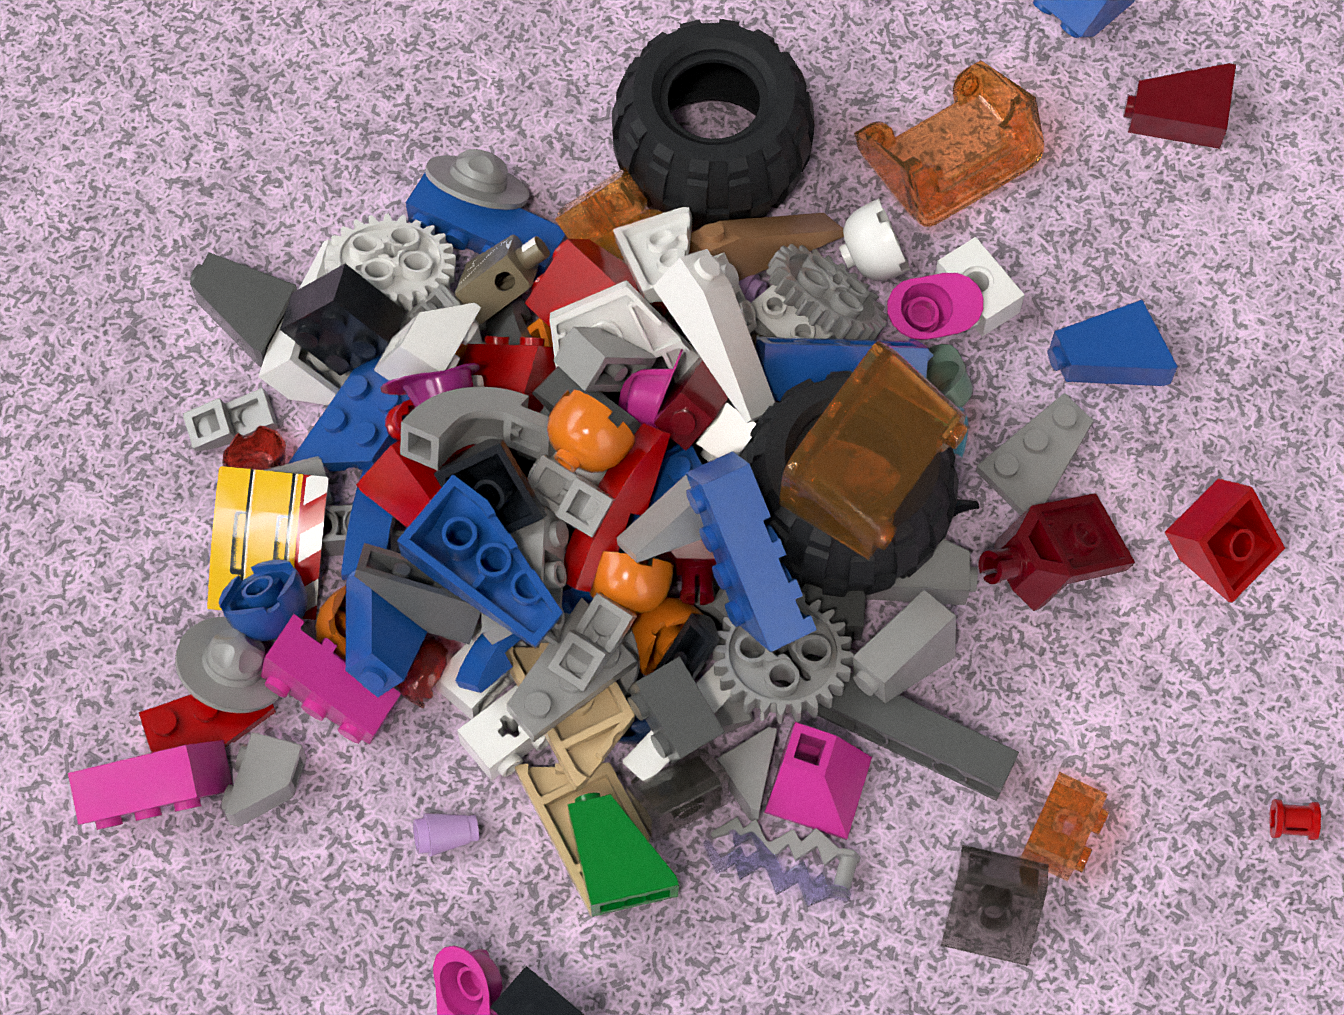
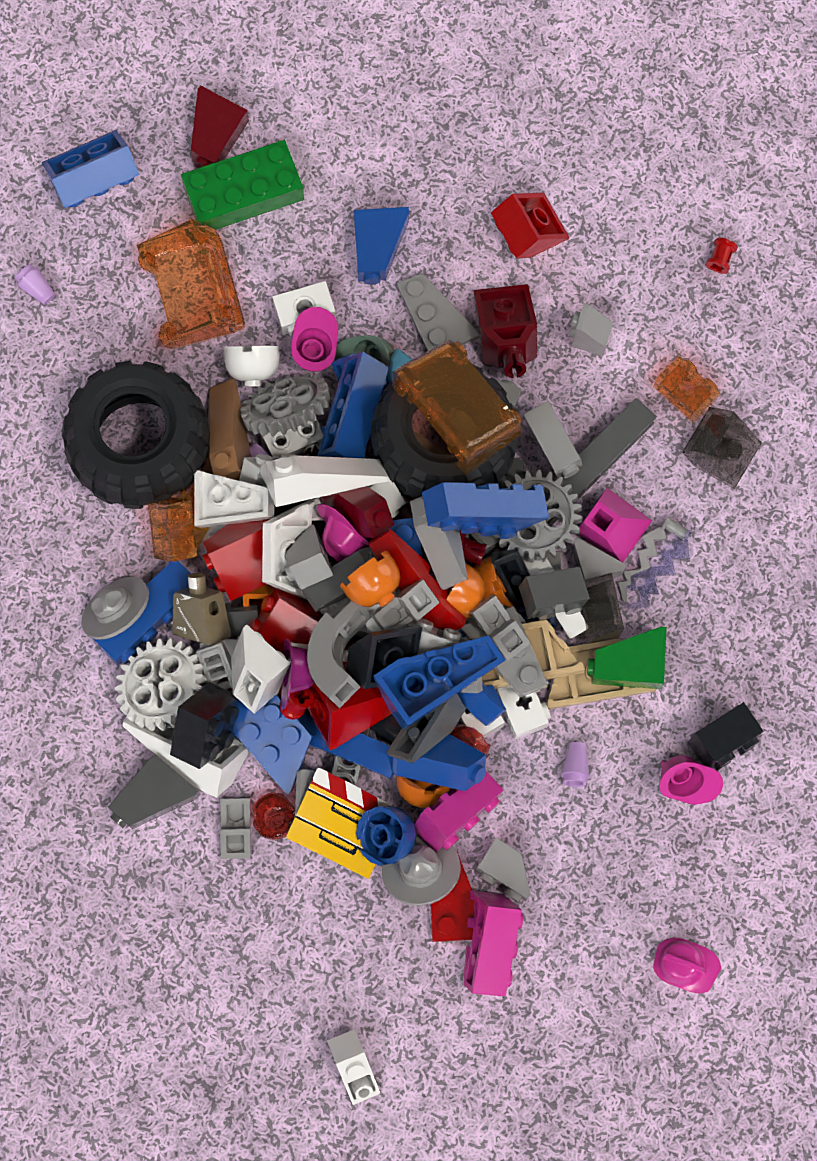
camera: 75 degrees left, 10 degrees up
(1097, 661) = (590, 330): none -> light grey slope
(1119, 162) = (243, 186): none -> green brick

